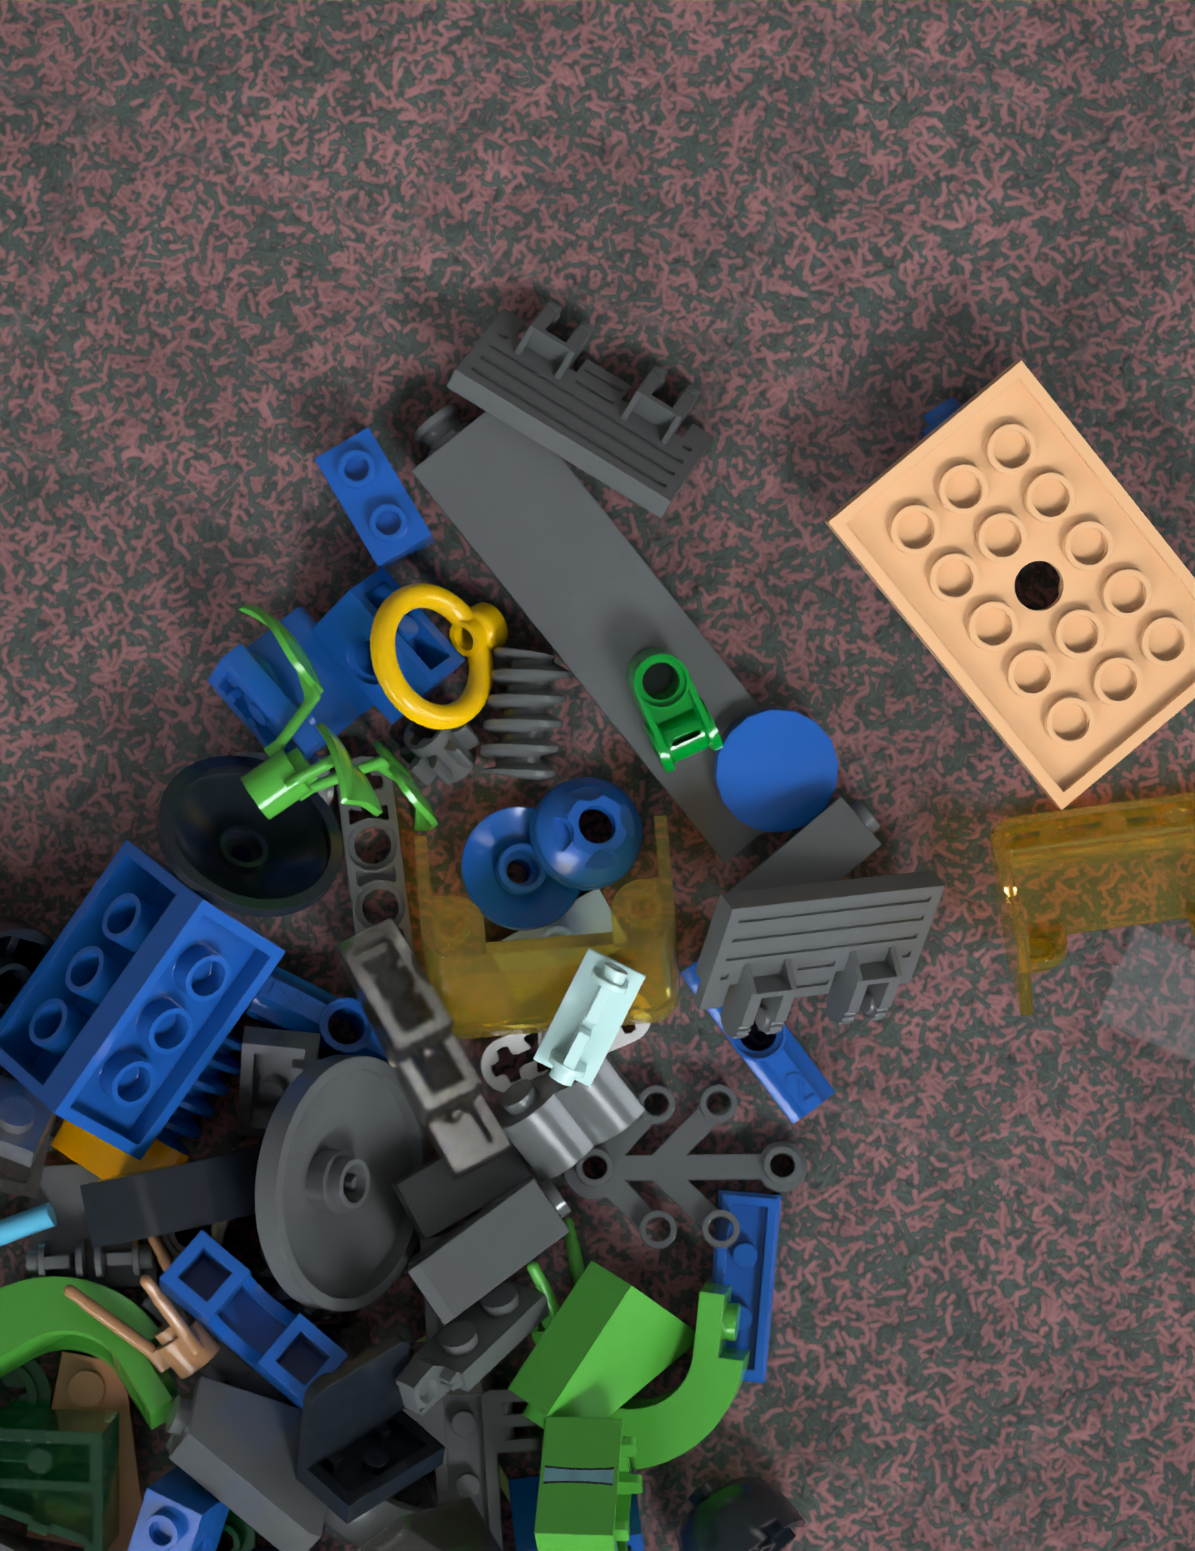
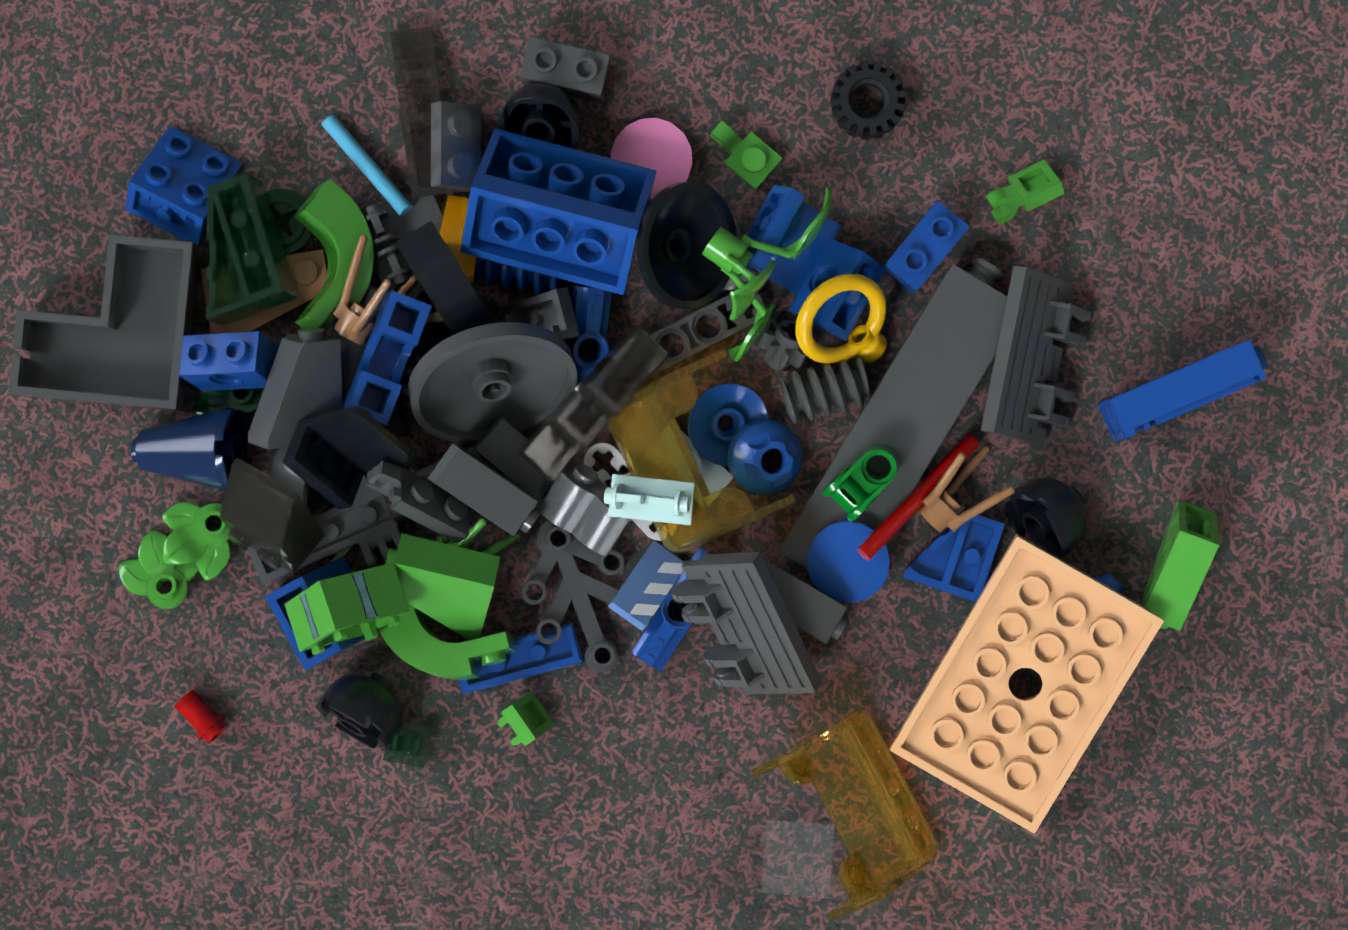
camera: 65 degrees right, 0 degrees up
(93, 824) = (655, 146): none -> bright pink tile
(99, 497) = (874, 76): none -> black tyre
(156, 699) = (749, 158): none -> bright green plate
(343, 323) = (1029, 188): none -> bright green plate
(707, 1066) = (647, 585): none -> medium blue tile
(708, 213) = (1183, 390): none -> blue door
(722, 639) = (913, 501): none -> red bar
(744, 612) = (941, 507): none -> medium nougat plant
(808, 1482) = (410, 744): none -> clear green tile
(813, 464) = (1049, 514): none -> black cylinder
(826, 612) = (959, 559): none -> blue wing
(833, 1304) = (526, 719): none -> bright green tile
(949, 305) = (1181, 563): none -> bright green slope

